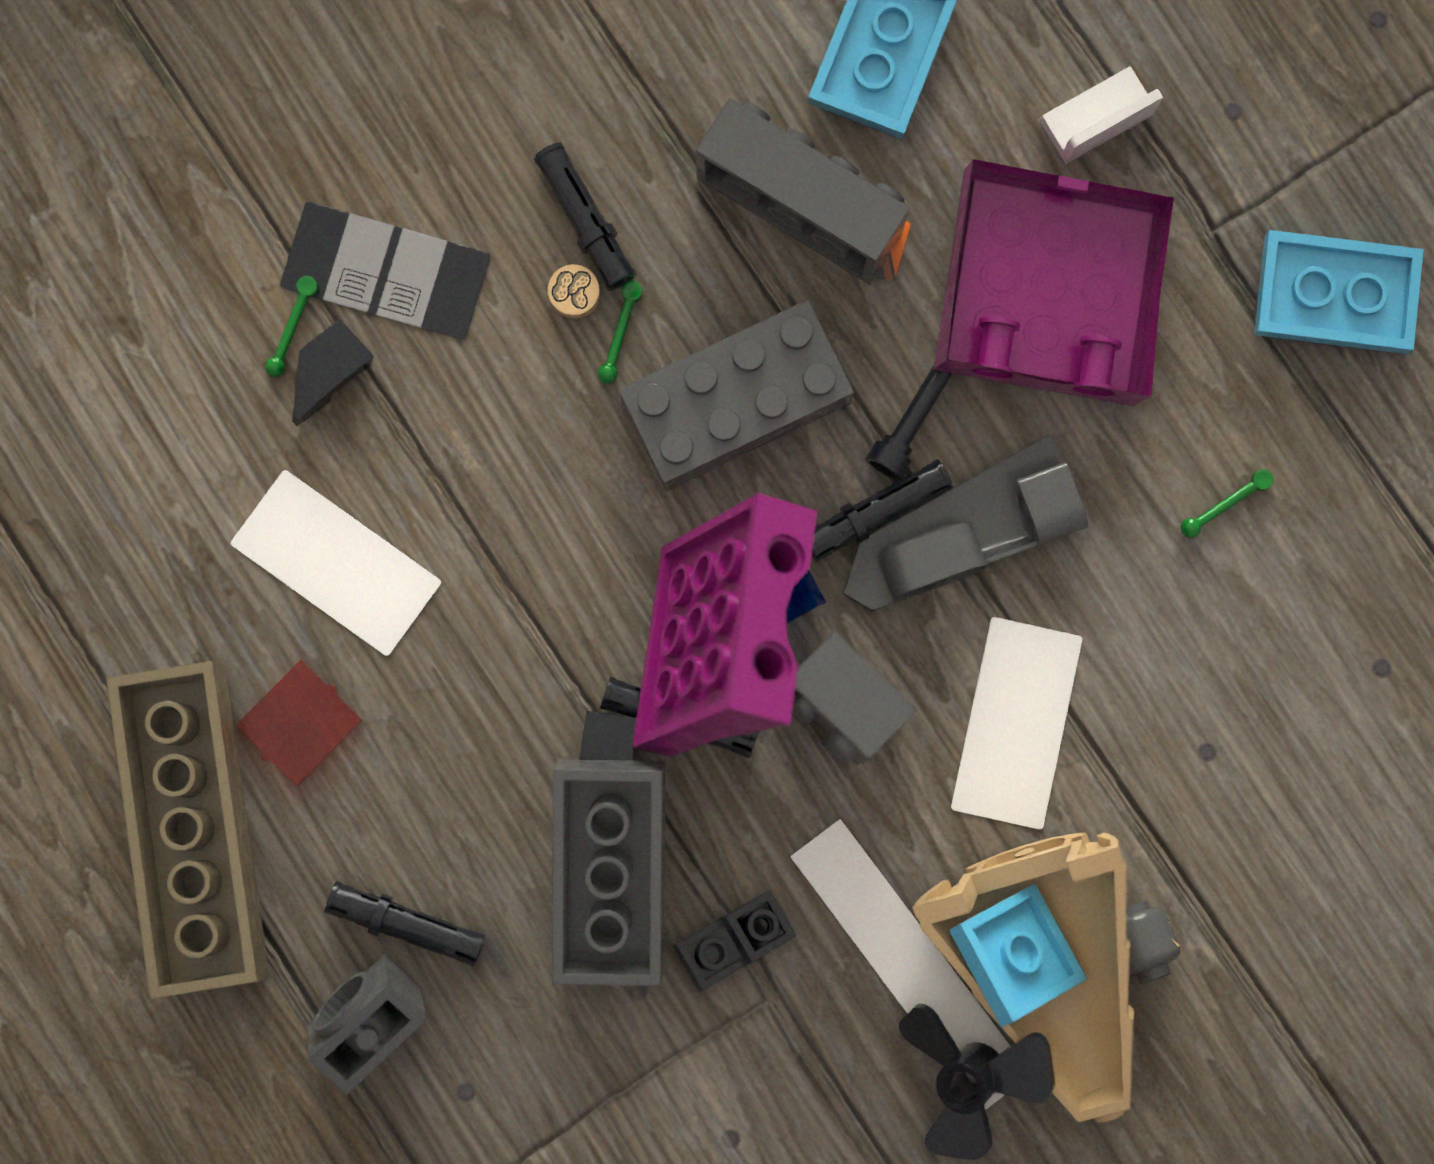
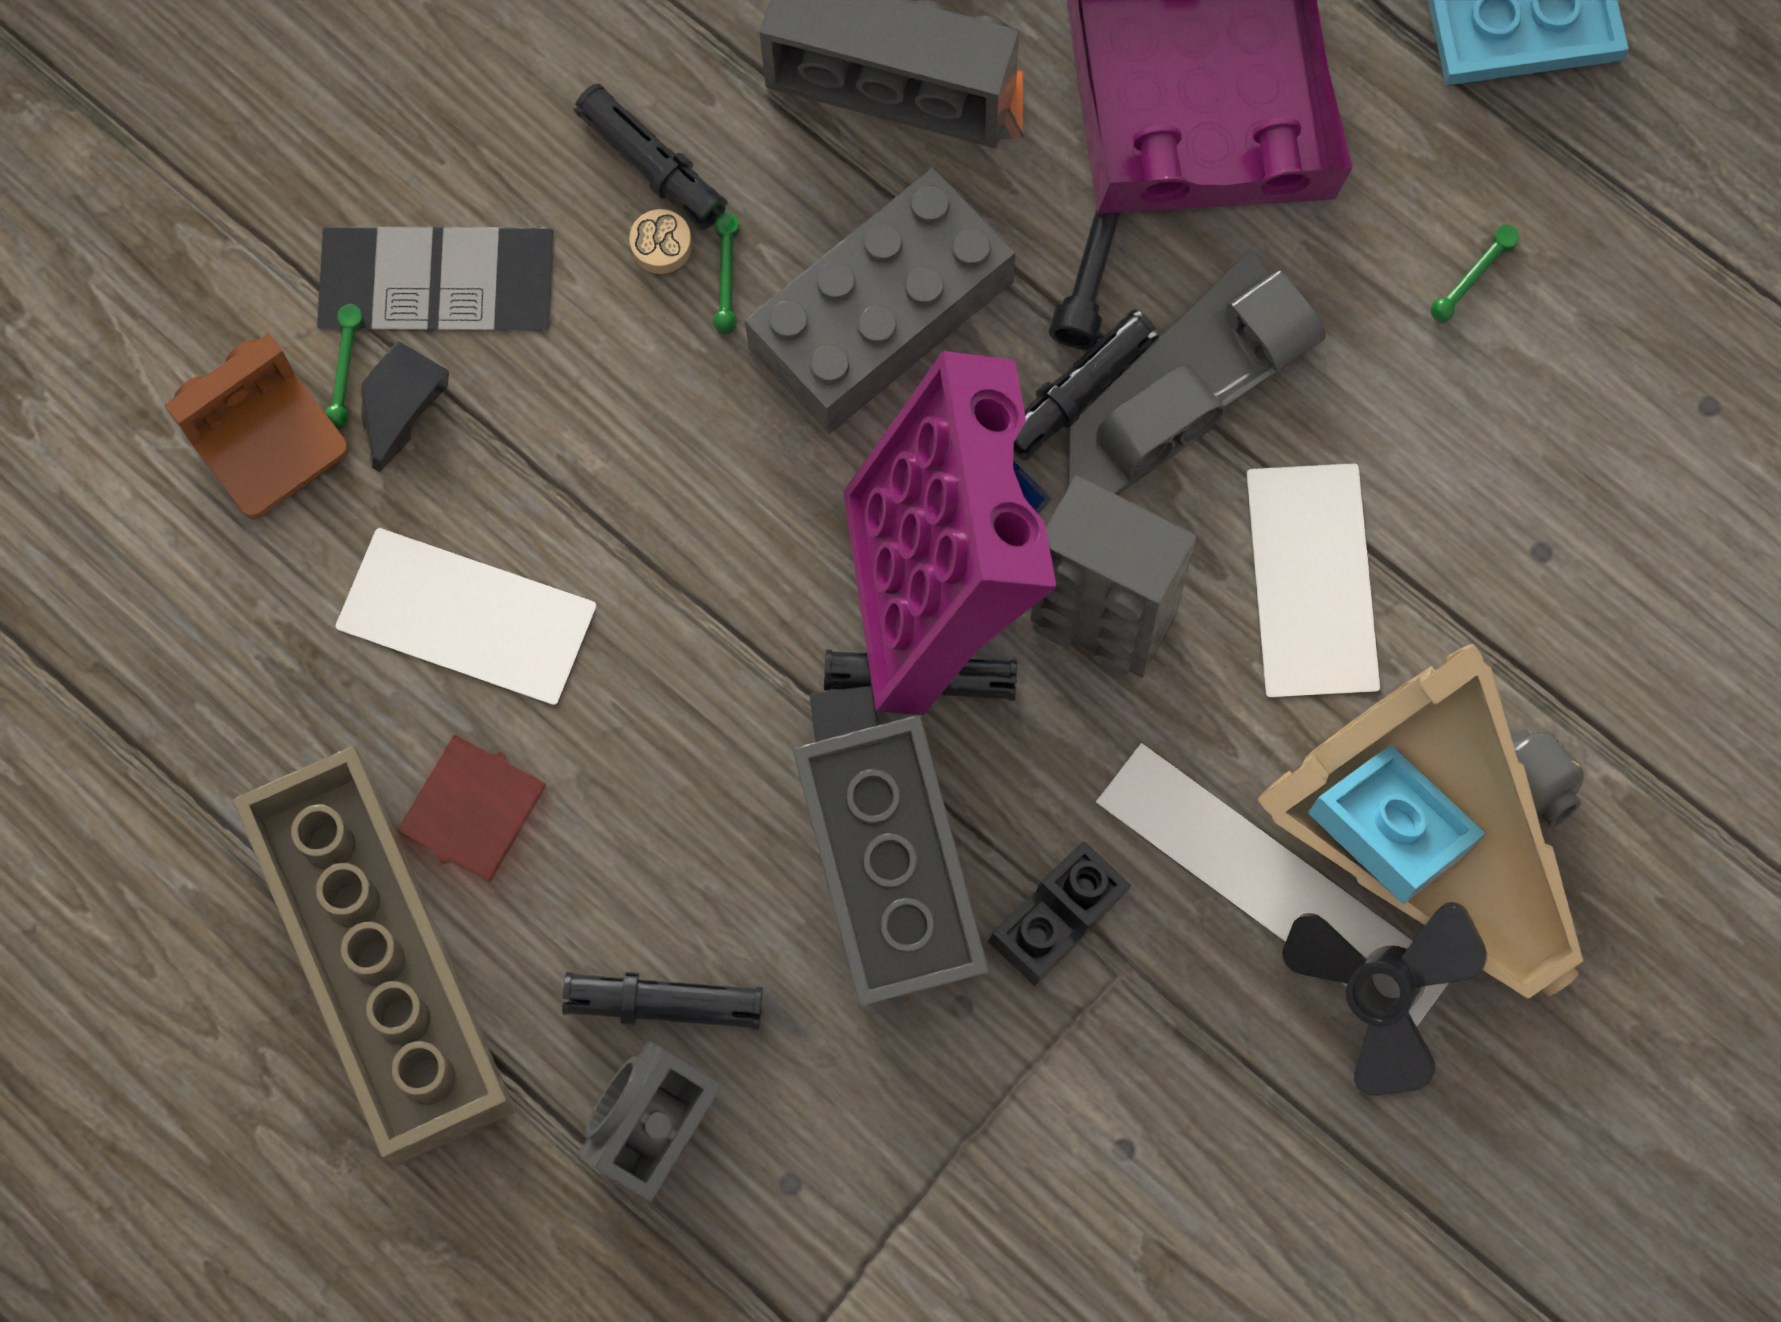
camera: 15 degrees left, 10 degrees down
(208, 363) = (257, 427): none -> dark orange bracket

